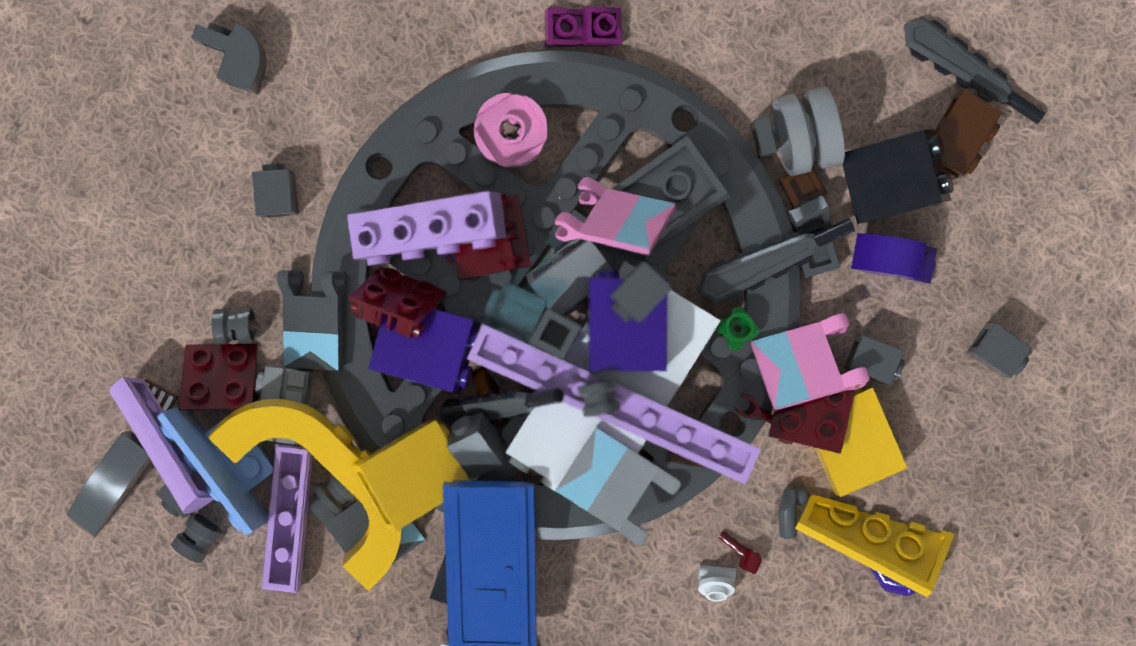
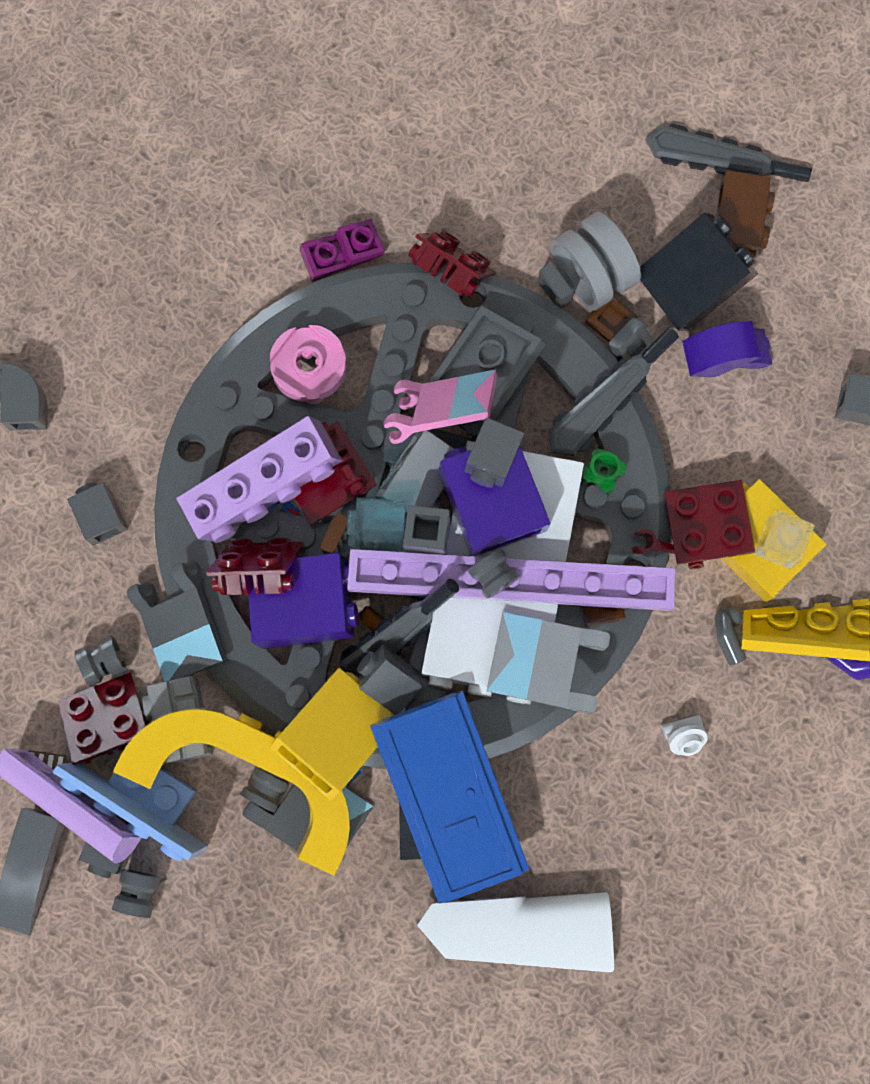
camera: 20 degrees left, 10 degrees down
(287, 518) = (224, 836): lavender brick -> none
(476, 300) = (335, 535): none -> reddish brown tile
(676, 62) = (468, 265): none -> dark red hinge
(750, 560) = (710, 698): dark red hand -> none
(801, 365) = (681, 482): bright pink flag -> none
(821, 261) = (659, 381): dark grey plate -> none
(870, 453) = (784, 539): none -> clear brick
(879, 359) = (750, 454): dark grey brick -> none

